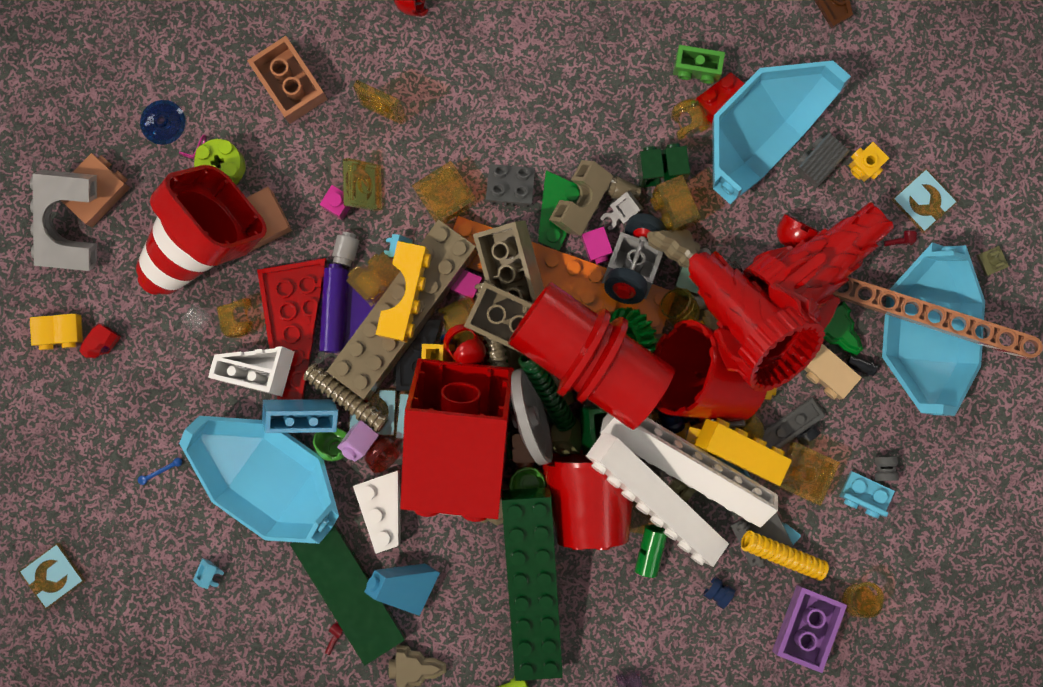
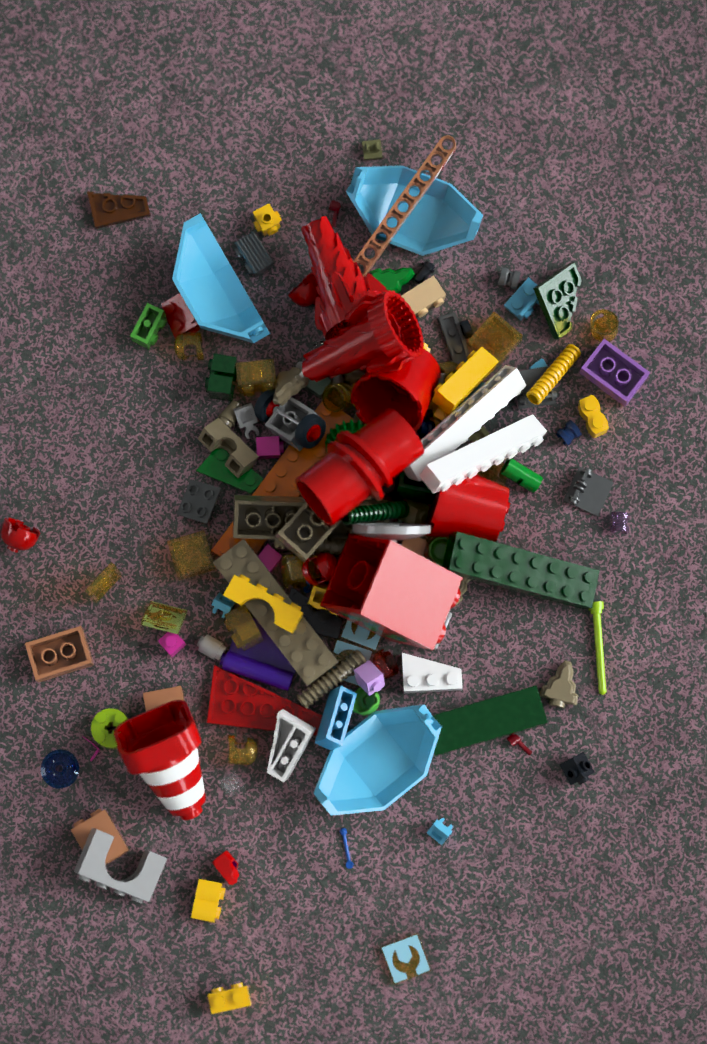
camera: 75 degrees left, 5 degrees down
(403, 586) = (494, 673): dark azure slope -> none
(656, 635) = (588, 491): none -> dark grey hinge
(753, 612) = (595, 420): none -> yellow brick
(879, 535) = (559, 299): none -> plate
(924, 200) = (309, 186): tile -> none

